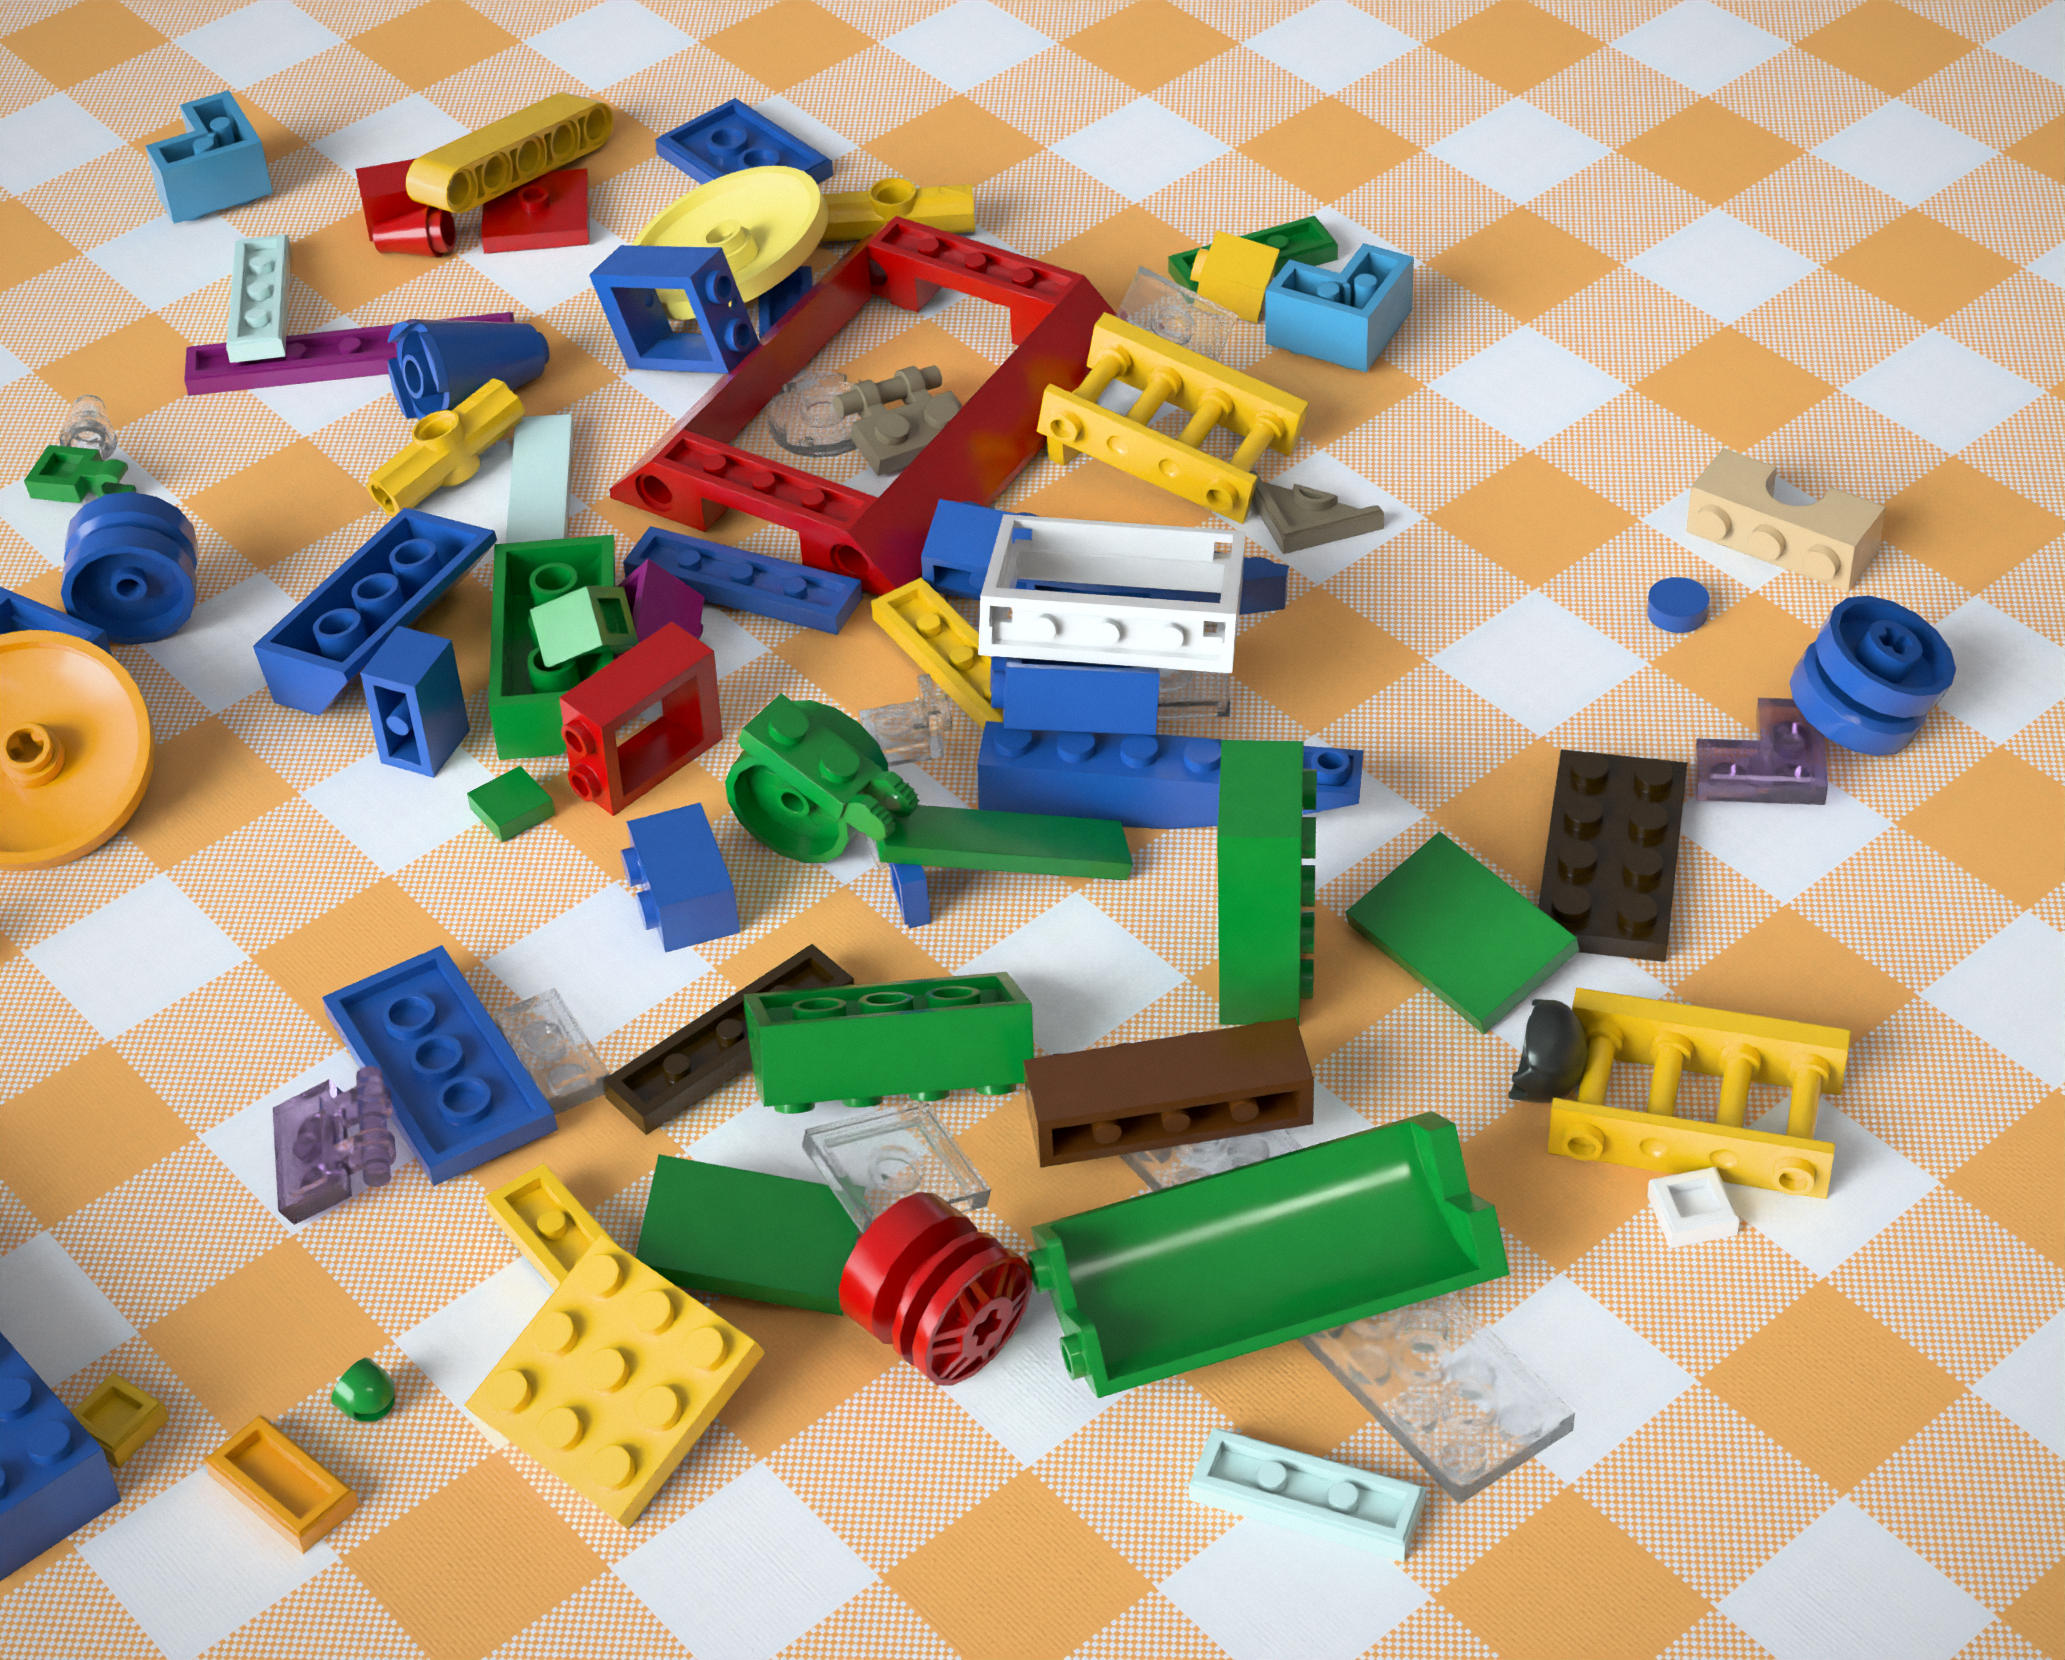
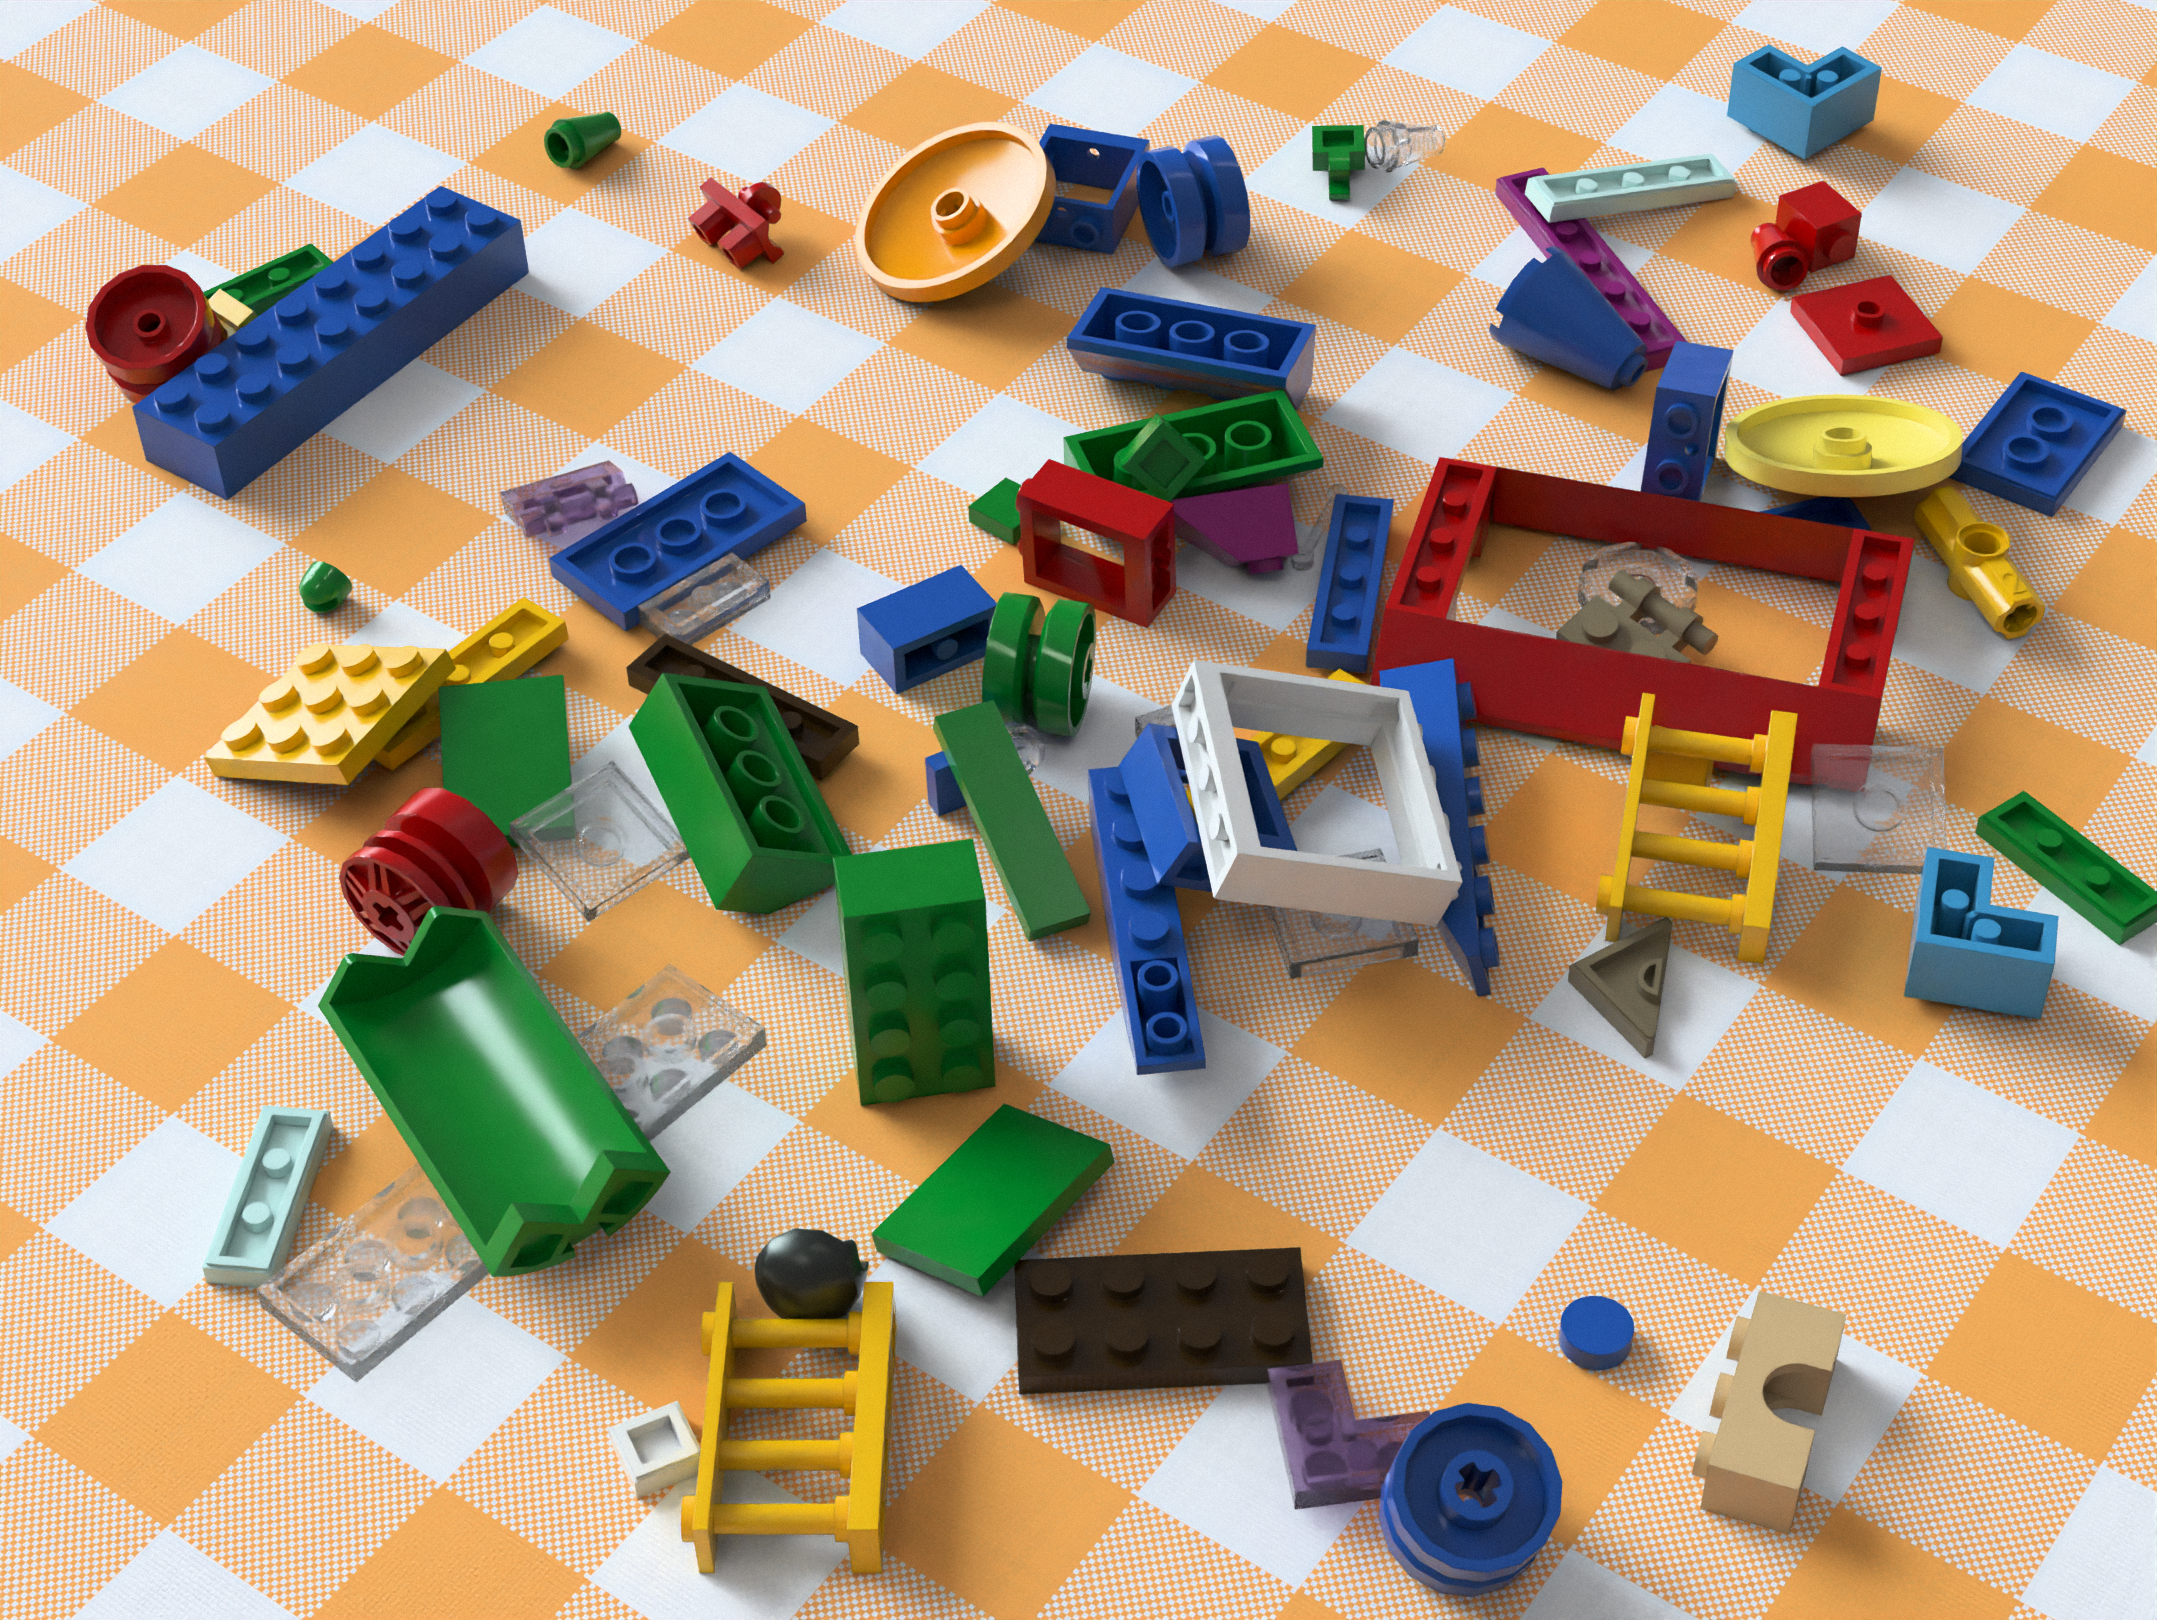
camera: 75 degrees right, 0 degrees up
(120, 1417) = (294, 472): yellow tile -> none
(282, 1483) = (239, 572): light orange tile -> none
(415, 701) = (1078, 392): blue brick -> none
(445, 448) = (1453, 346): yellow piece -> none
(509, 152) = (1927, 293): yellow beam -> none
(540, 479) = (1432, 429): light aqua tile -> none
(827, 769) = (991, 636): green hinge -> none
(1168, 1092) = (686, 987): reddish brown brick -> none
(1235, 274) = (1990, 826): yellow brick -> none

